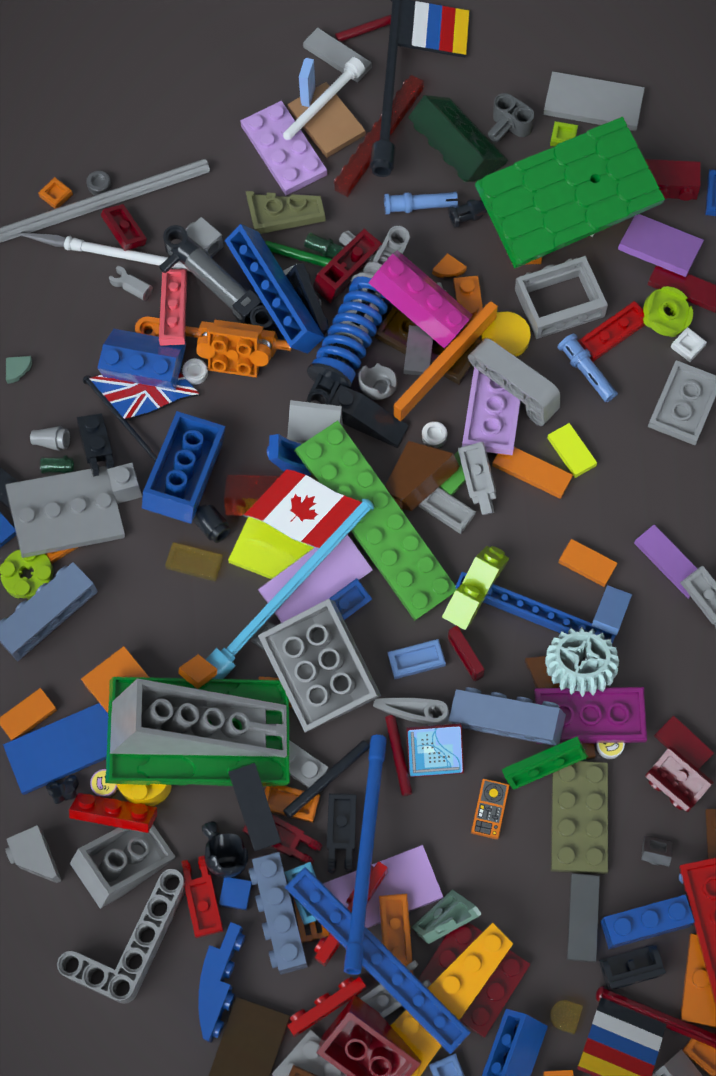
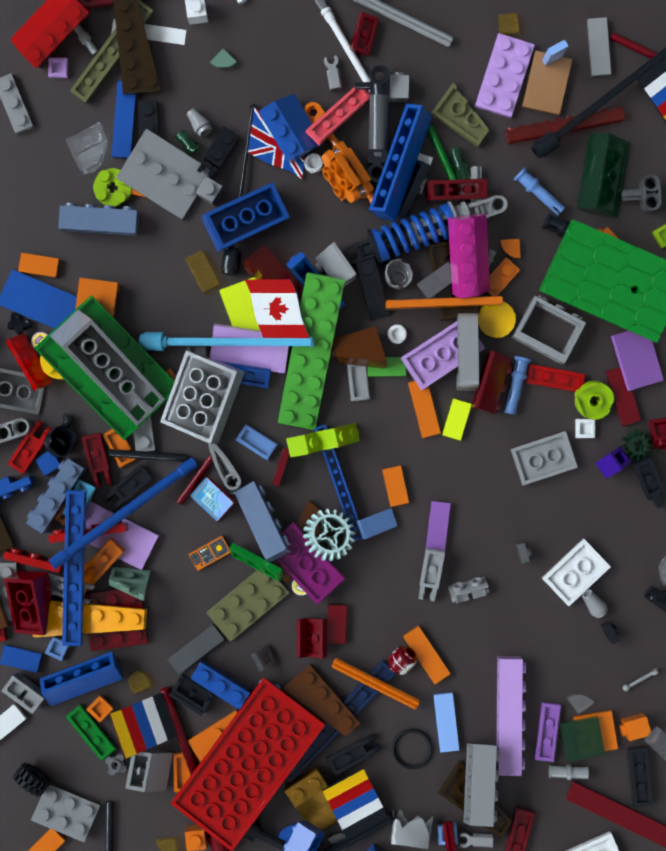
camera: 50 degrees right, 20 degrees up
(197, 671) = (137, 337): orange tile -> none
(240, 107) = (508, 24): none -> clear yellow tile
(254, 806) = (94, 434): black tile -> none
(353, 69) = (592, 69): white piece -> none
(478, 476) = (390, 383): light grey hinge -> none
(576, 401) = (492, 383): none -> dark red slope

